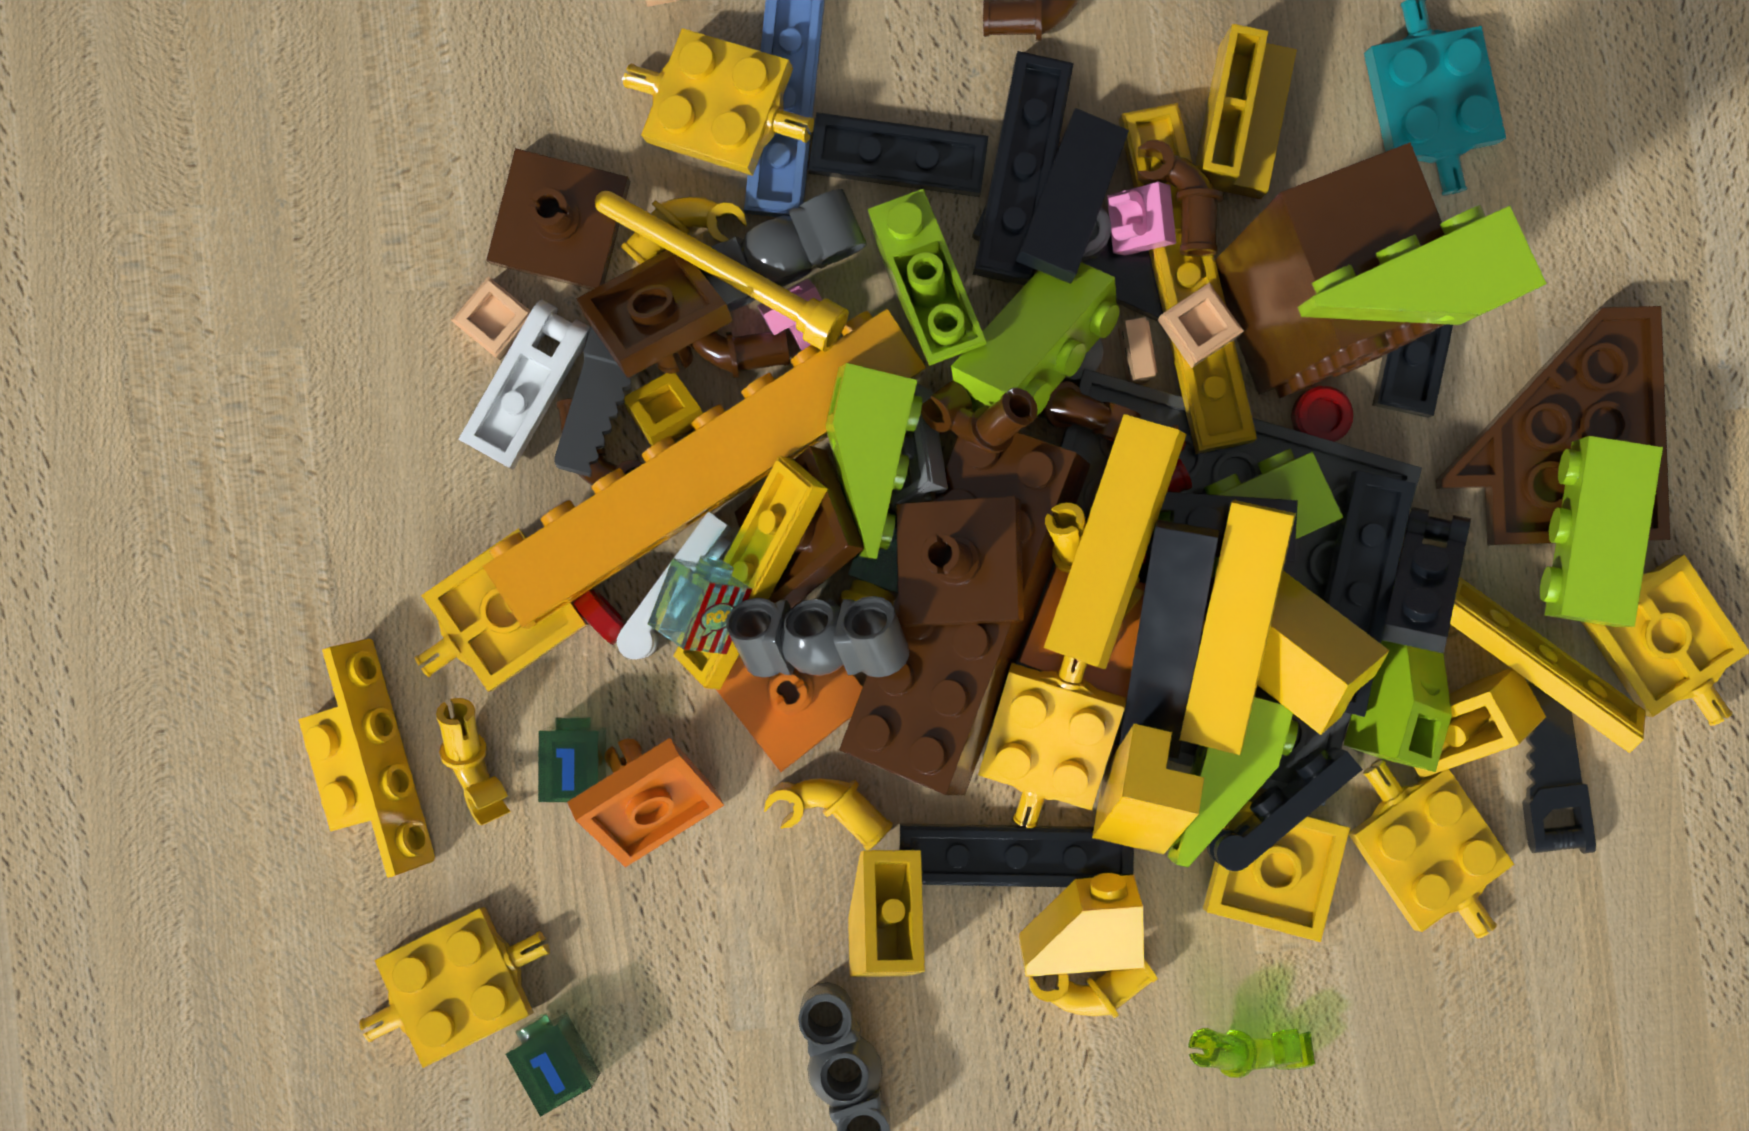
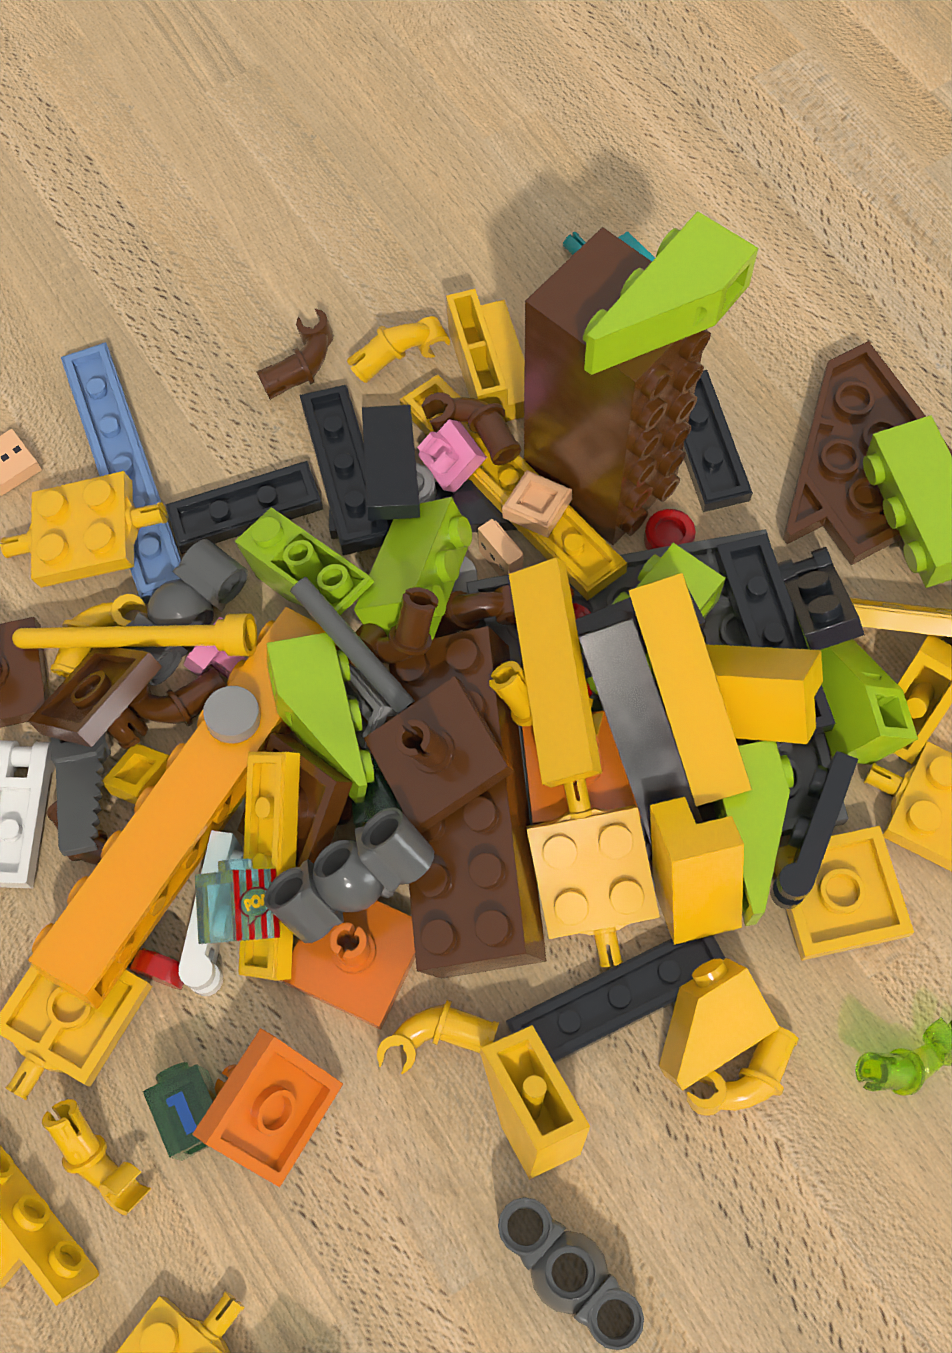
camera: 20 degrees left, 20 degrees down
(779, 408) = (232, 714): none -> light grey tile
(930, 407) = (352, 645): none -> dark grey piece
(1150, 43) = (392, 343): none -> yellow piece

